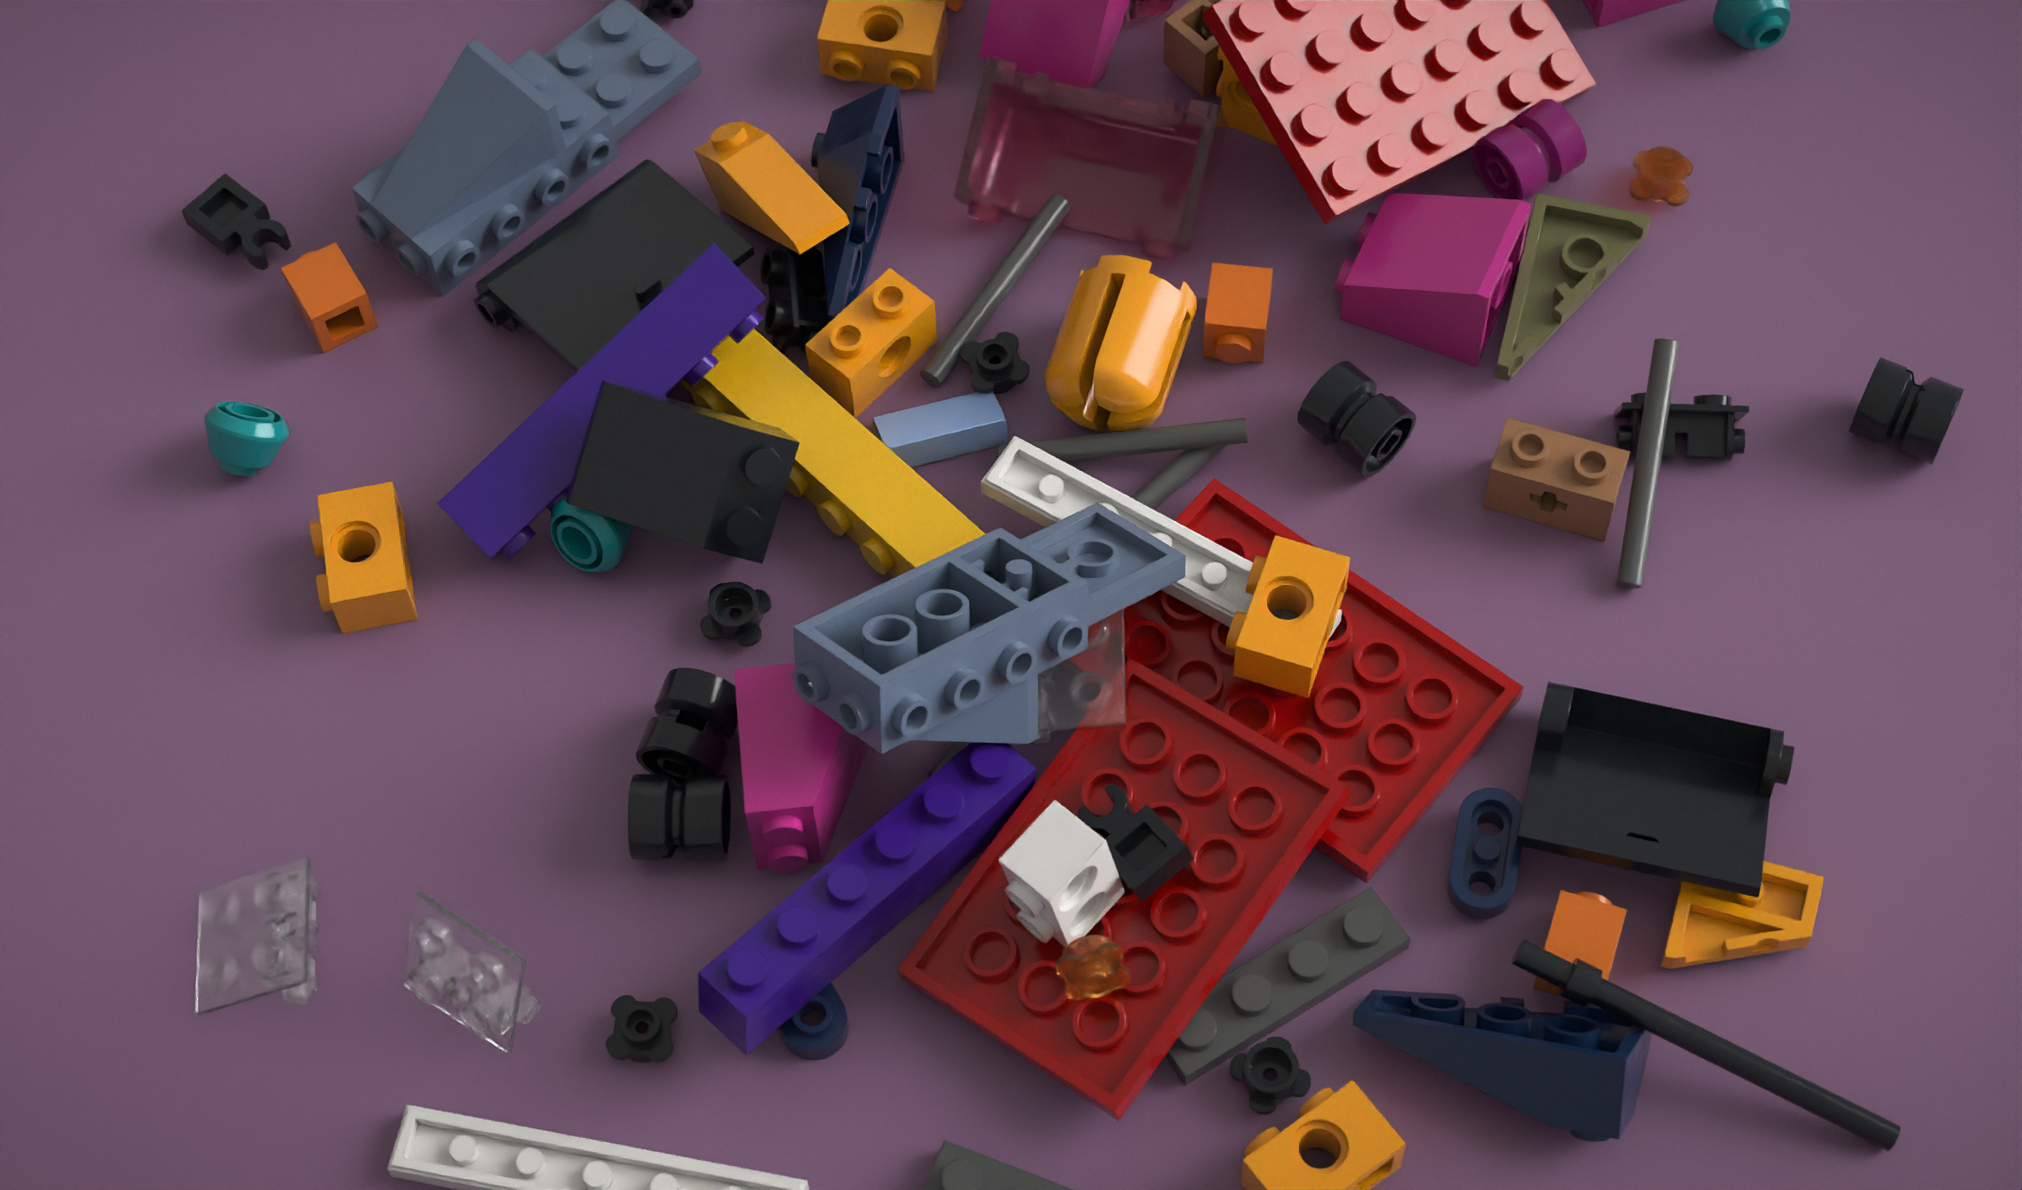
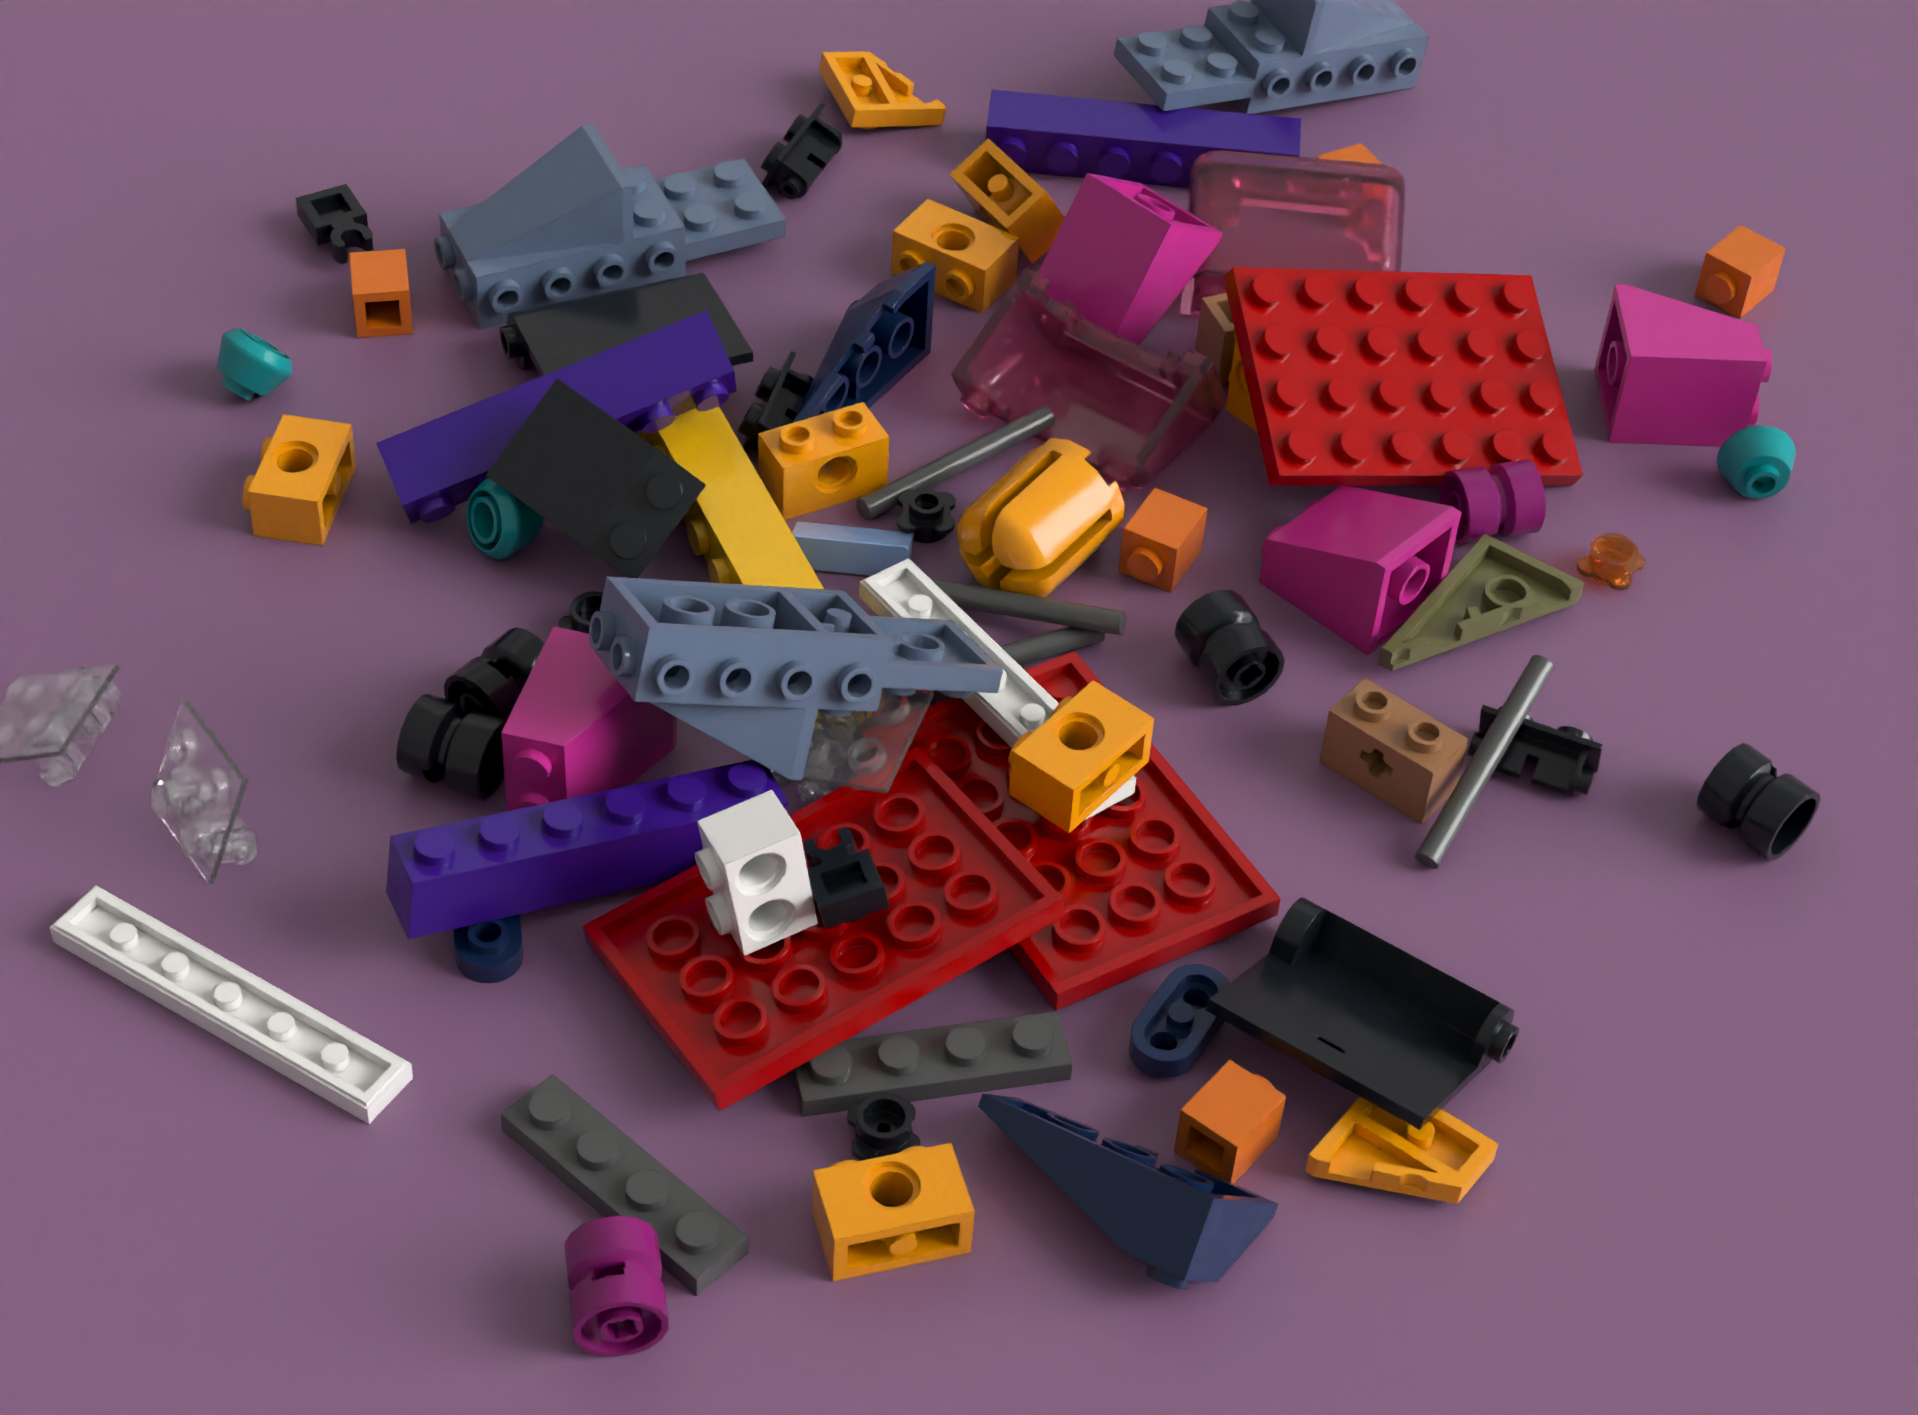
camera: 15 degrees right, 15 degrees down
(647, 1047) = (333, 900): black plate -> none
(767, 187) = (788, 313): light orange slope -> none
(1092, 967) = (755, 949): clear orange plate -> none
(1583, 984) = (1212, 1137): black bar -> none

